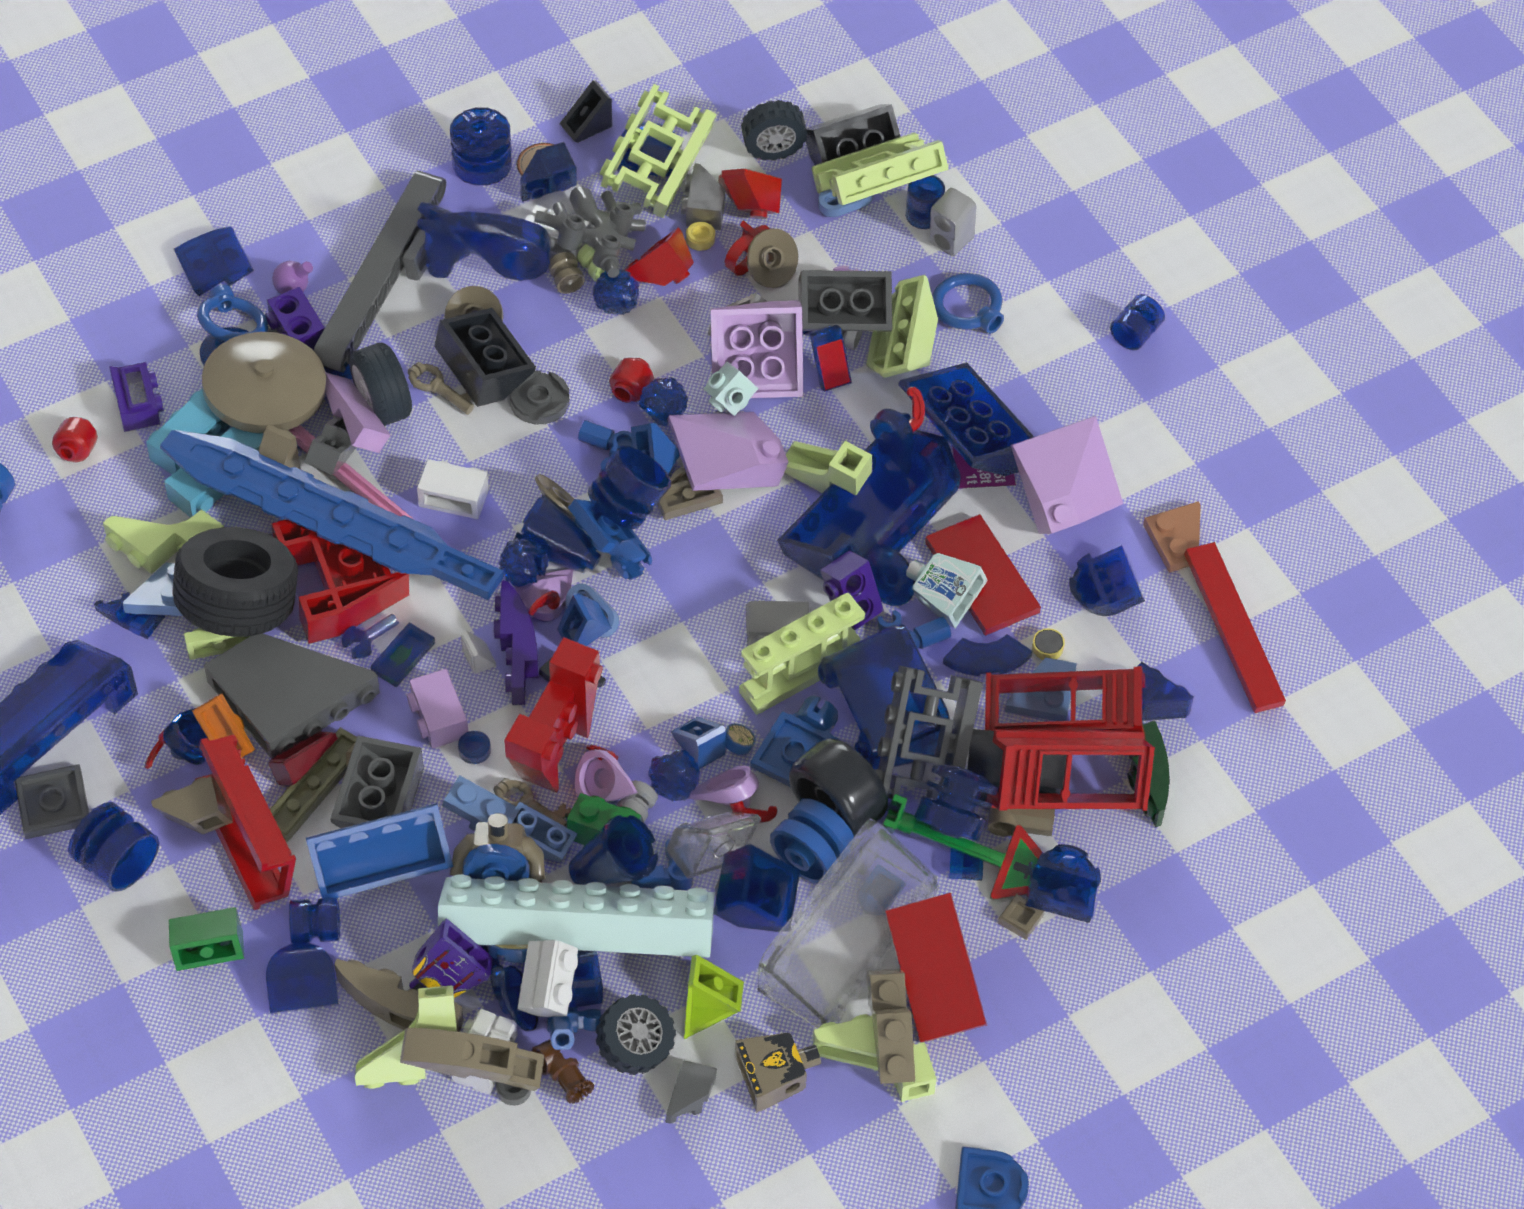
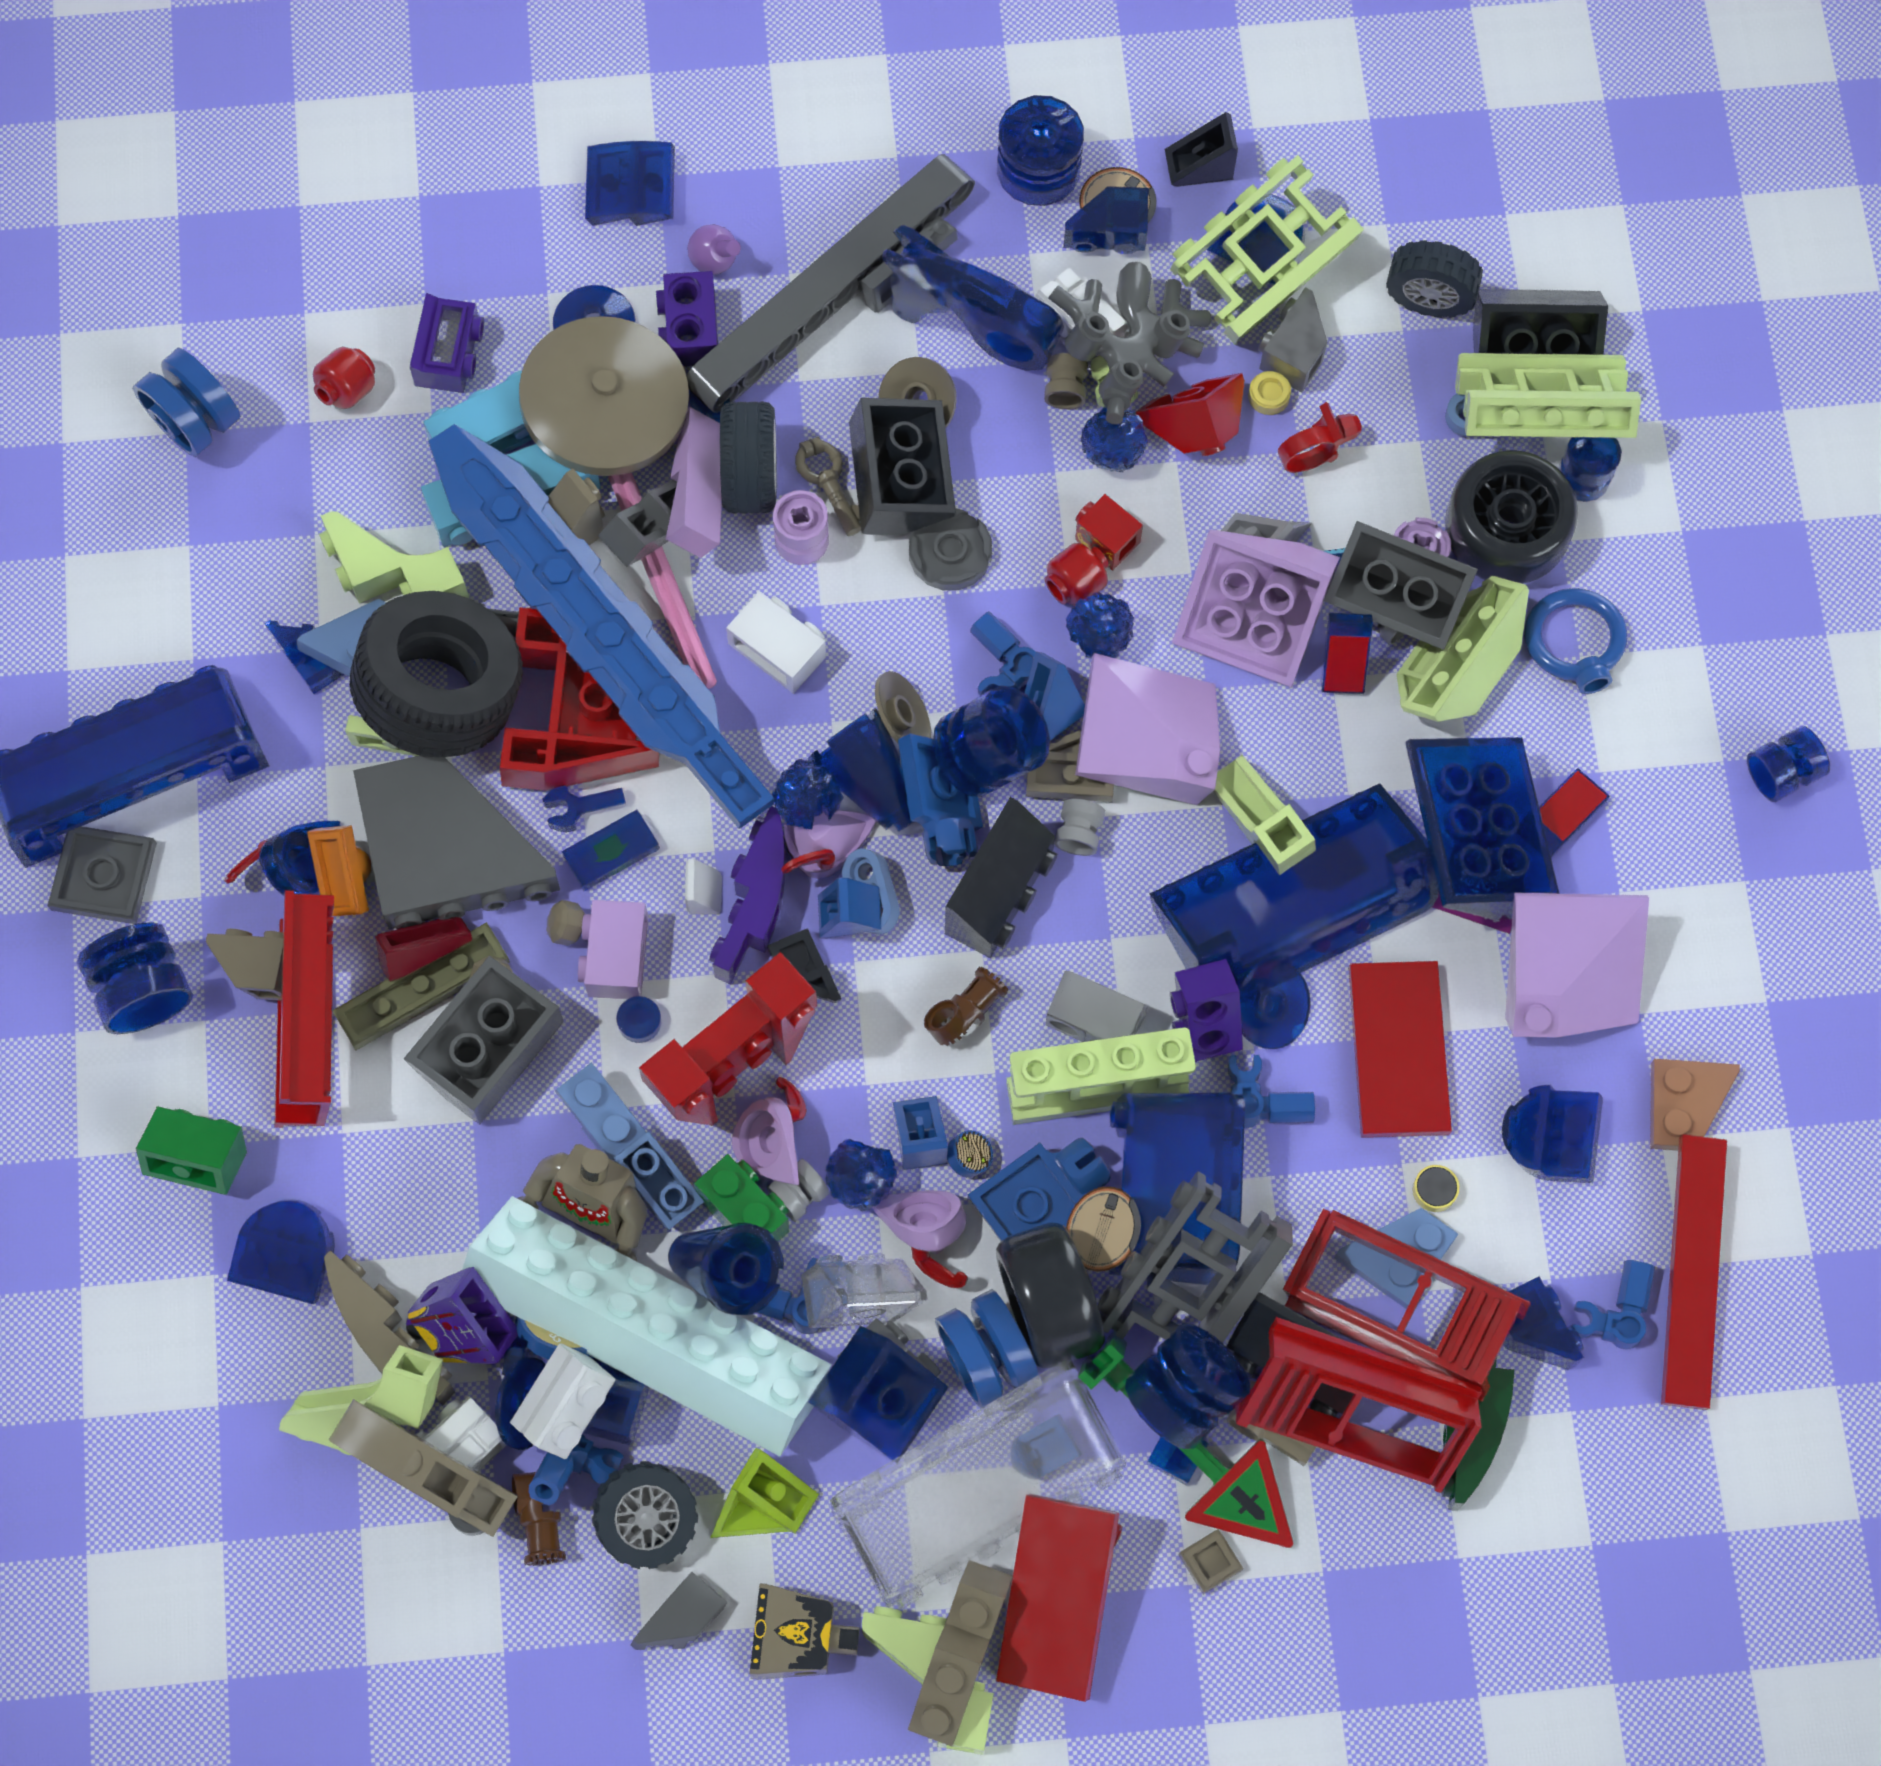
camera: 25 degrees right, 15 degrees up
(225, 300) = (615, 248): blue piece -> none
(314, 920) = (334, 1182): clear blue wheel -> none
(379, 852) = (444, 1131): blue slope -> none
(395, 705) = (565, 922): none -> dark tan tile
(435, 415) = (801, 527): none -> lavender wheel
(496, 861) = (577, 1210): blue tile -> none
(506, 785) = (666, 1127): dark tan piece -> none
(639, 343) = (1108, 529): none -> red brick
(676, 570) = (1000, 880): none -> black slope
(692, 654) = (964, 1008): none -> reddish brown connector
(710, 522) = (1080, 827): none -> light grey wheel
(729, 389) = (1192, 646): light aqua brick -> none
(752, 191) = (1362, 362): red slope -> none
(782, 258) = (1350, 482): dark tan dish -> none
(857, 730) = (1104, 1228): none -> tan sticker
(893, 239) = (1515, 489): none -> black wheel
(896, 429) = (1379, 803): clear blue piece -> none
(943, 231) = (1609, 513): light grey piece -> none
(947, 585) = (1337, 1053): light aqua torso -> none
(984, 658) = (1347, 1174): clear blue tile -> none
(1018, 395) = (1570, 809): none -> red tile
(1064, 883) = (1283, 1546): clear blue slope -> none
(1208, 674) = (1626, 1327): none -> blue bar

